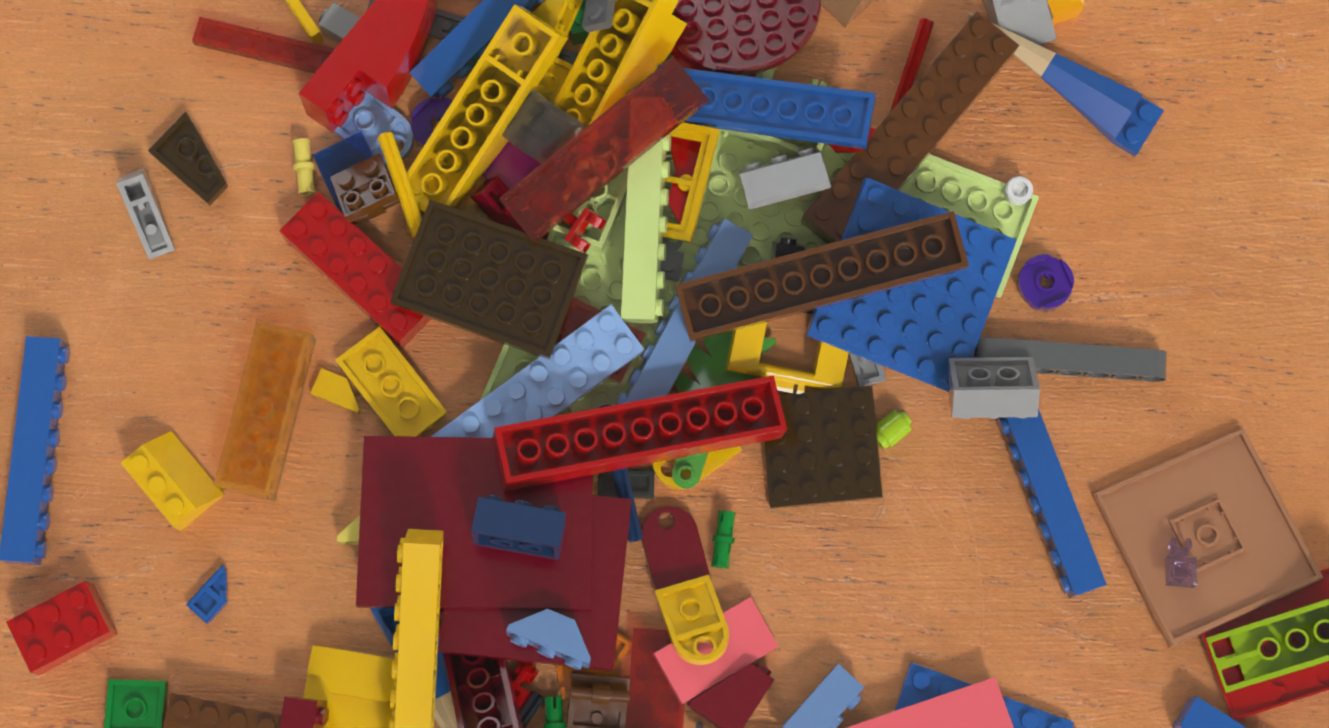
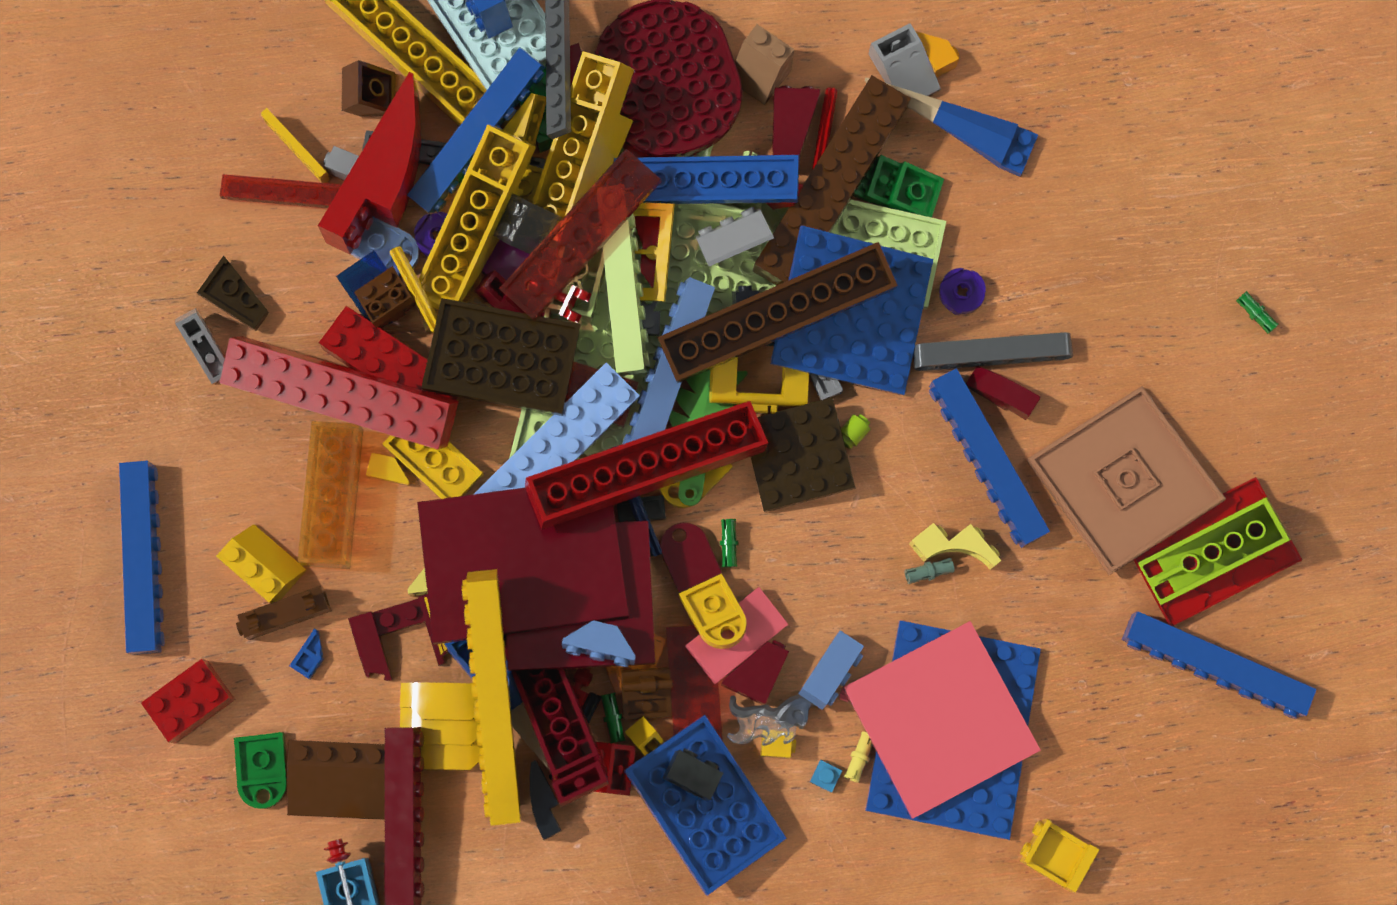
camera: 10 degrees left, 0 degrees up
(189, 541) = (283, 613): none -> reddish brown brick
(288, 572) = (370, 626): none -> dark red wedge
(294, 292) = (339, 392): none -> brick
(304, 167) = (330, 287): light yellow pin -> none
(519, 527) = (559, 557): dark blue brick -> none
(875, 48) = (792, 118): none -> dark red slope
(955, 609) = (929, 571): none -> sand green pin
(990, 147) = (900, 187): none -> green slope
(993, 387) = (932, 383): light grey slope -> none
(1008, 581) = (968, 541): none -> light yellow arch
(1018, 190) = (928, 218): white tile -> none
(1076, 410) = (1003, 392): none -> dark red slope
(1180, 568) = (1108, 508): plate -> none

